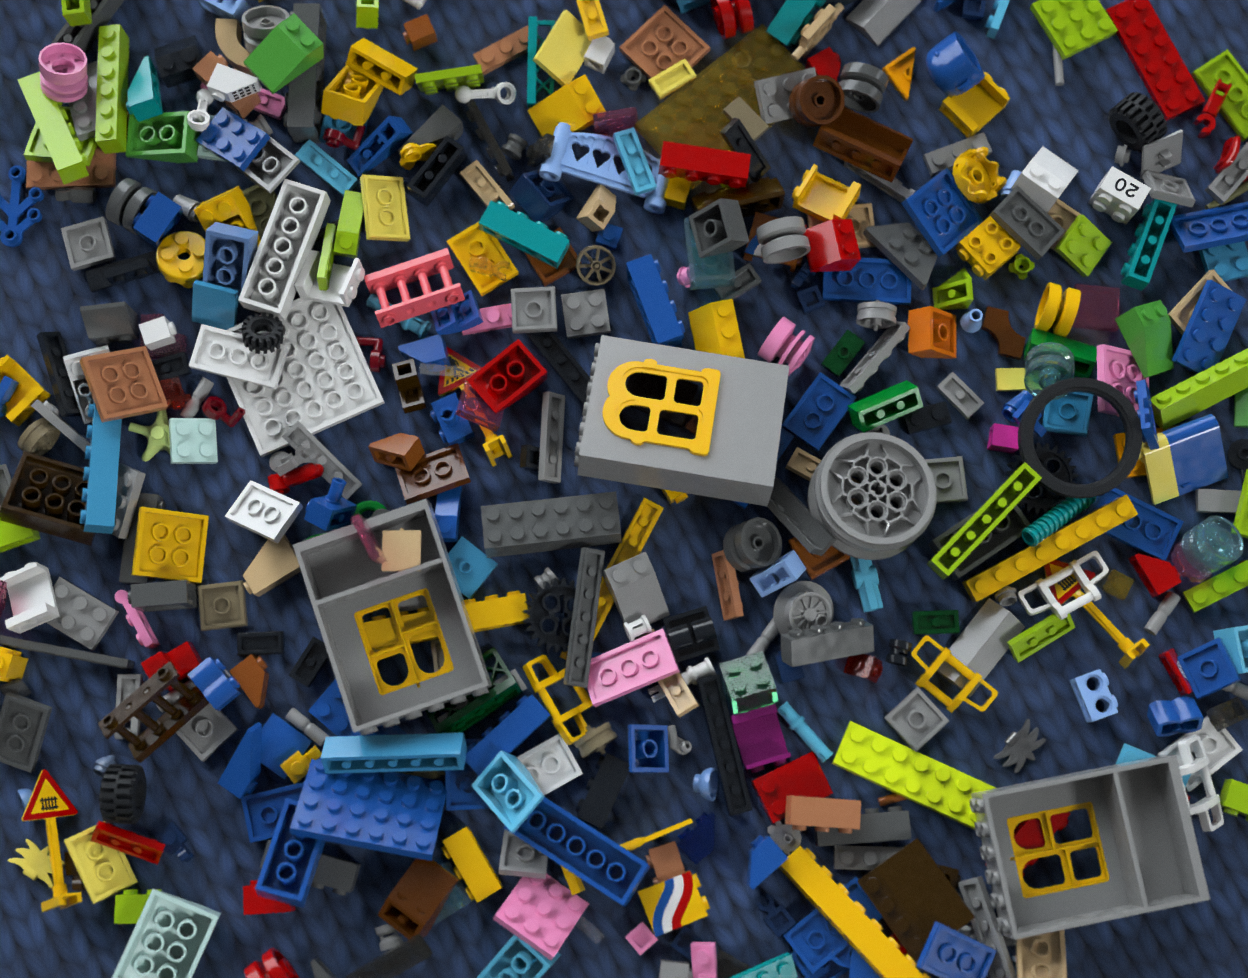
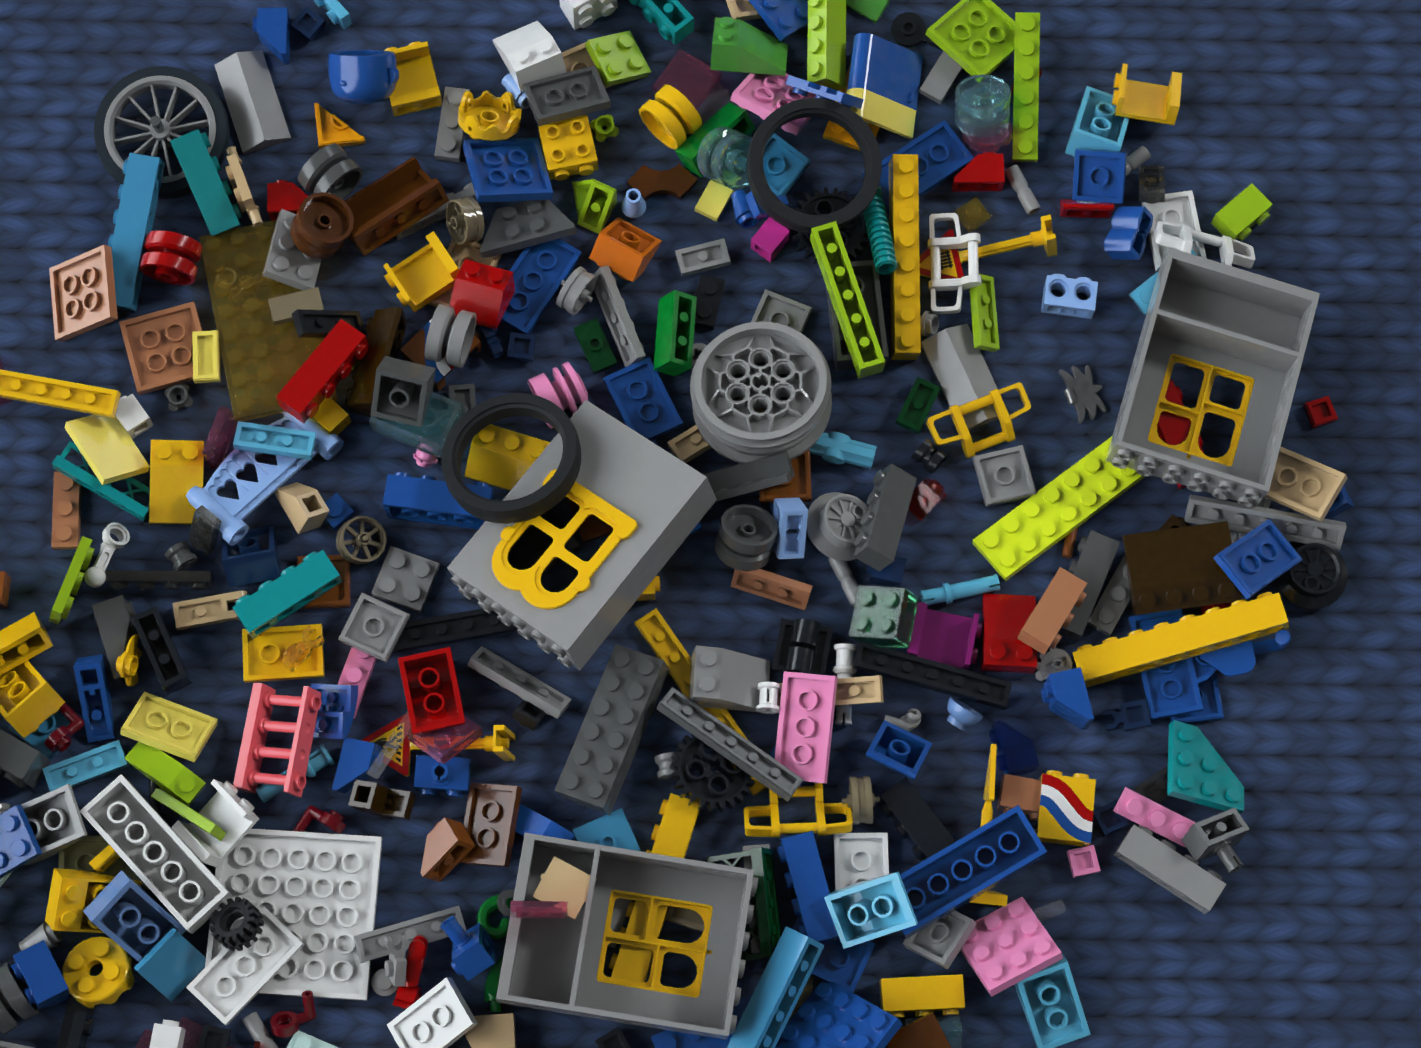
camera: 65 degrees left, 5 degrees down
(260, 215) = (104, 859): none -> yellow tile
(720, 292) = (491, 411): none -> black tyre
(883, 202) = (464, 220): none -> dark tan wheel
(1115, 949) = (1320, 412): none -> red tile

